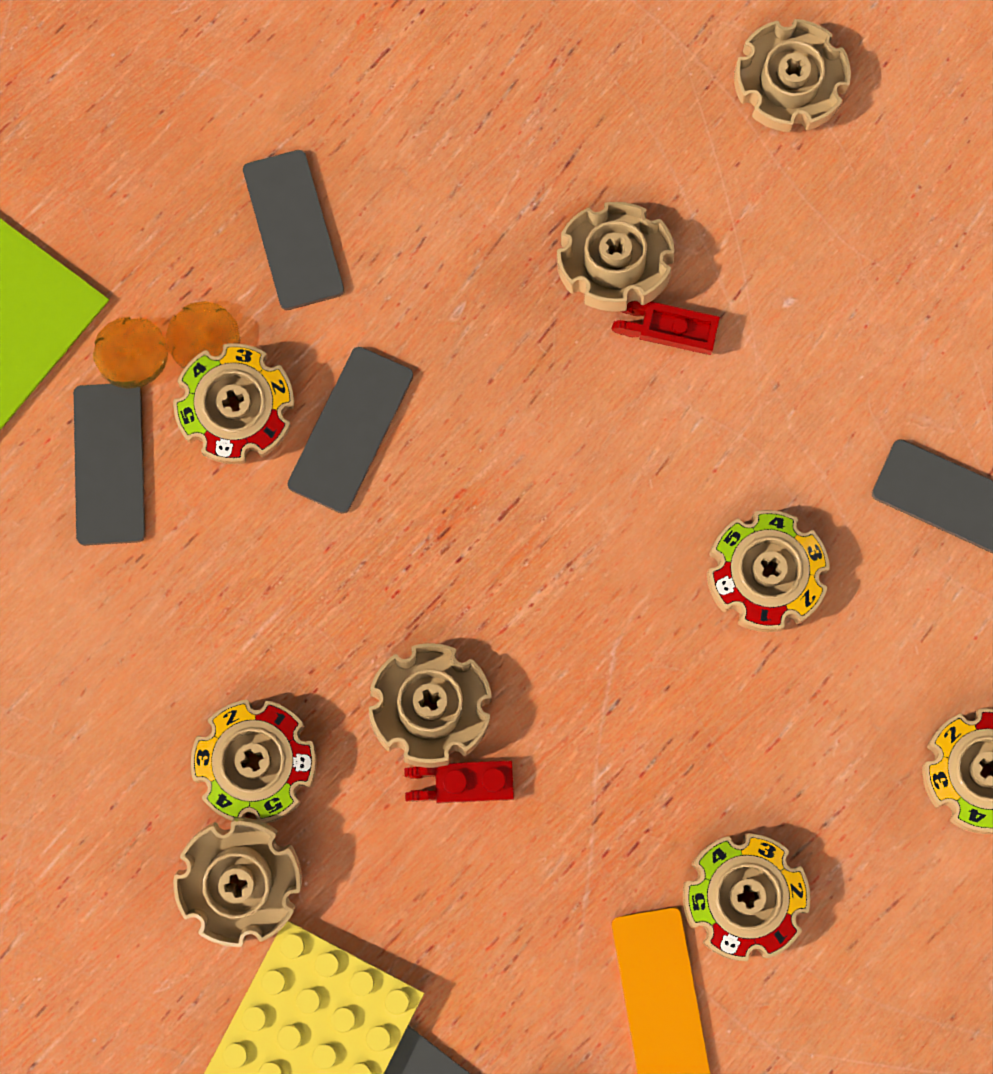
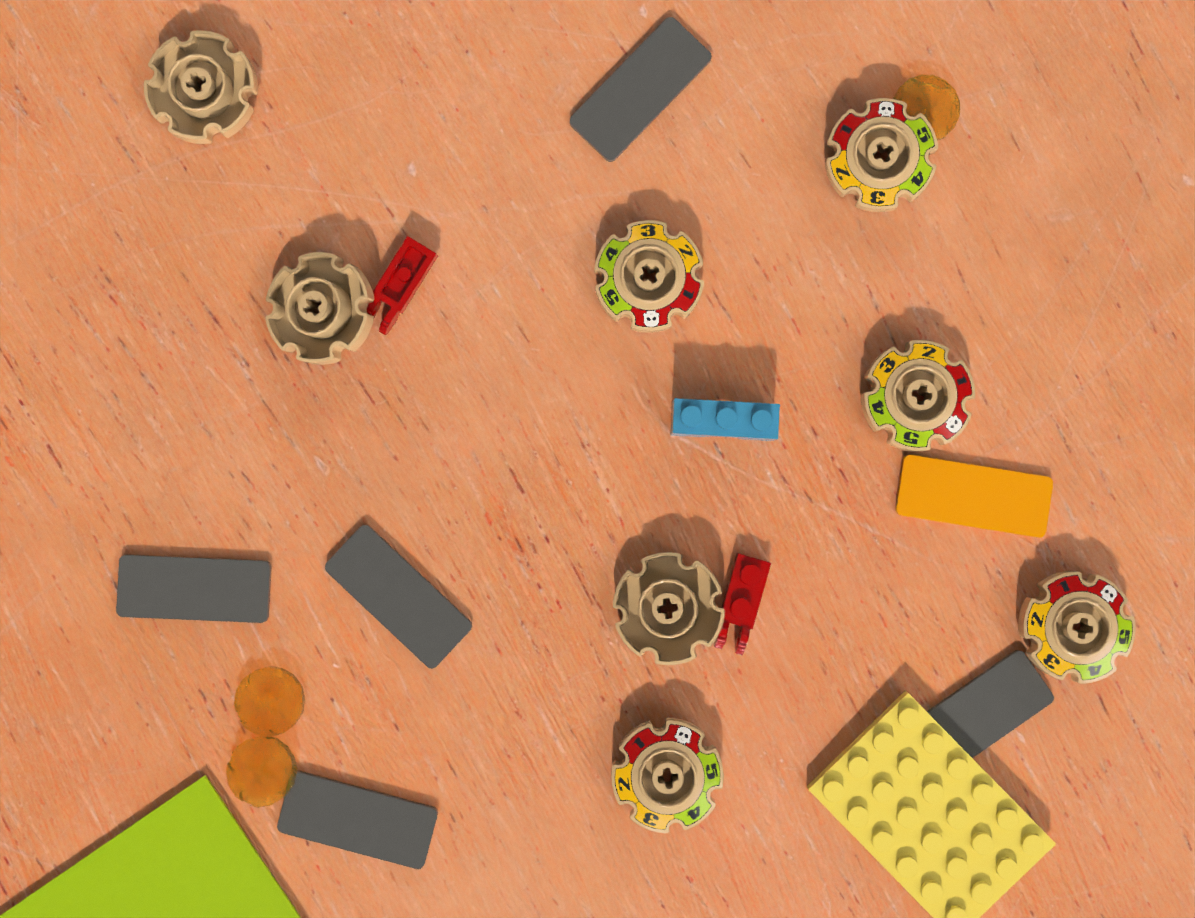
camera: 65 degrees left, 10 degrees up
(210, 384) = (322, 714): tan piece -> none
(222, 907) = (765, 820): tan piece -> none
(648, 697) = (725, 419): none -> dark azure arch

